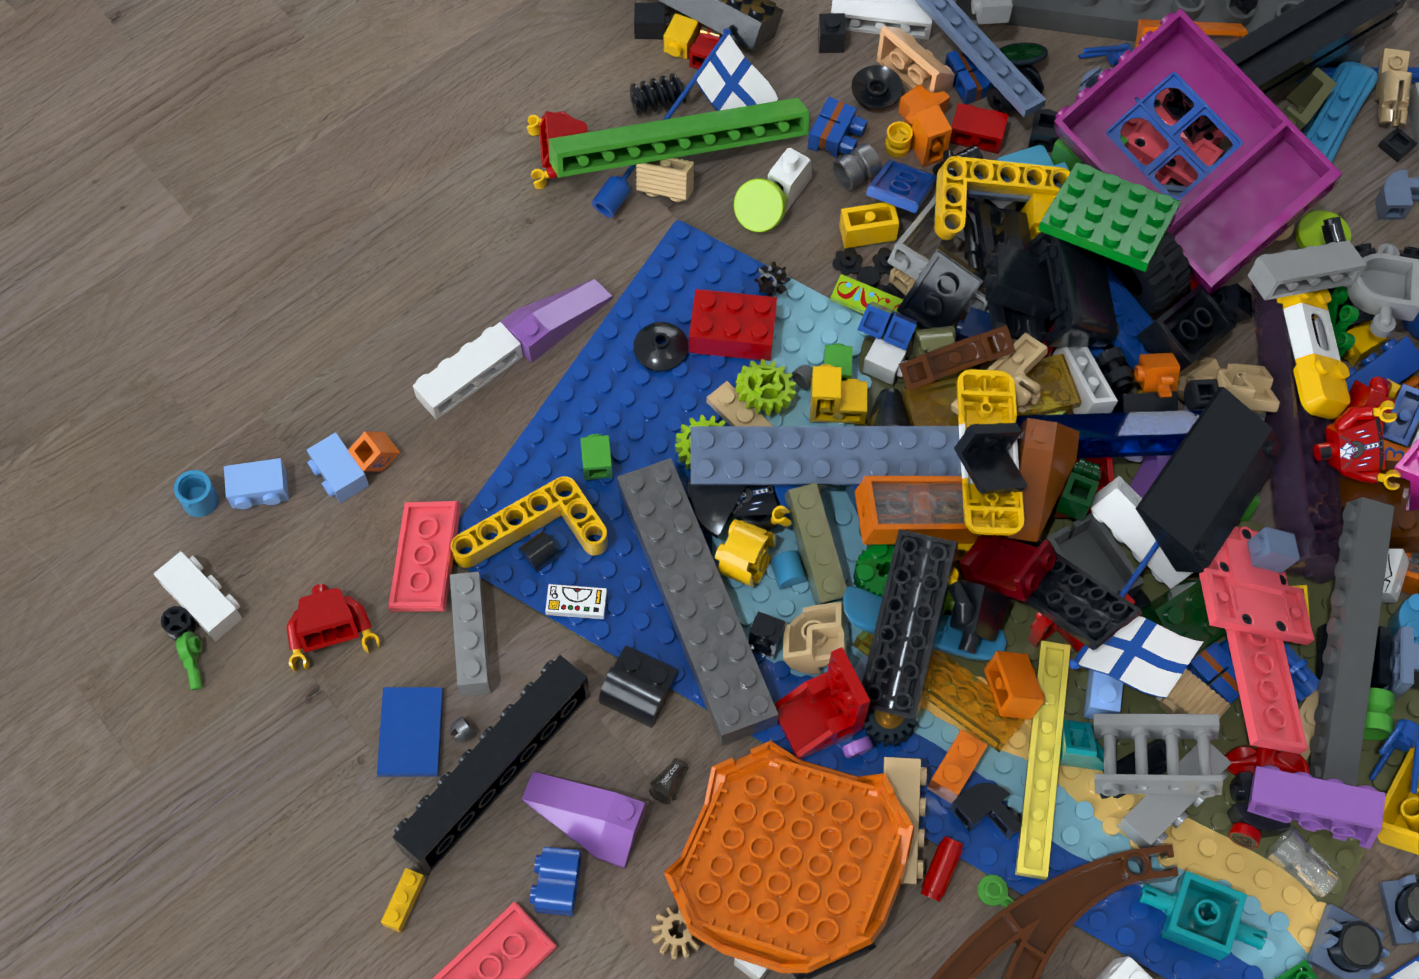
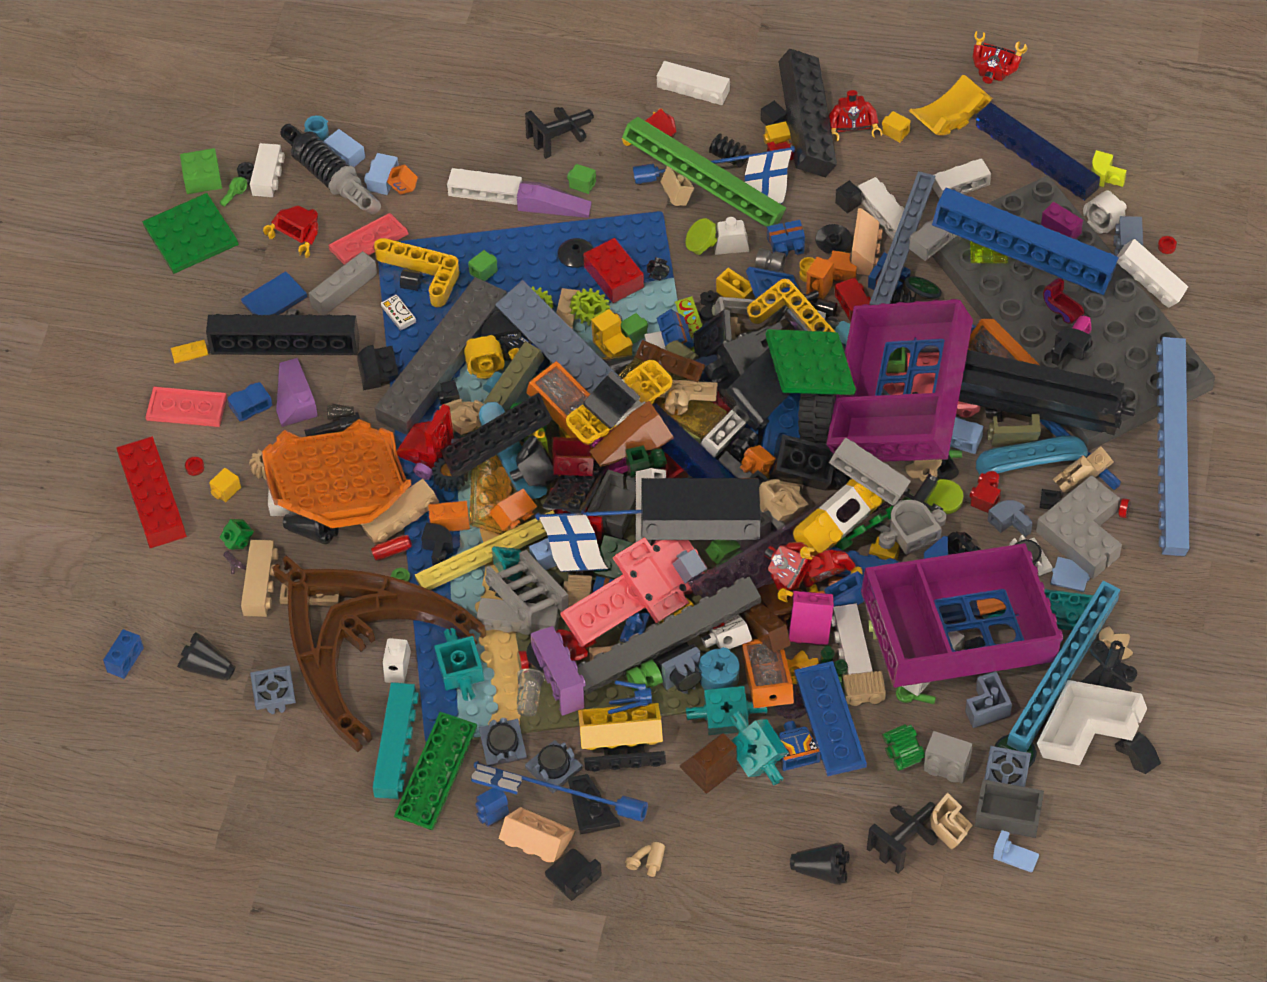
camera: 55 degrees right, 10 degrees down
(121, 676) = (201, 171): none -> bright green brick
(205, 761) = (190, 233): none -> green plate
(272, 520) = (329, 167): none -> black piece
(456, 253) = (544, 133): none -> black piece
(524, 60) = (693, 83): none -> white brick
(555, 263) = (582, 178): none -> bright green brick
(692, 792) = (342, 422): none -> black pin
(1354, 197) = (986, 493): none -> red brick

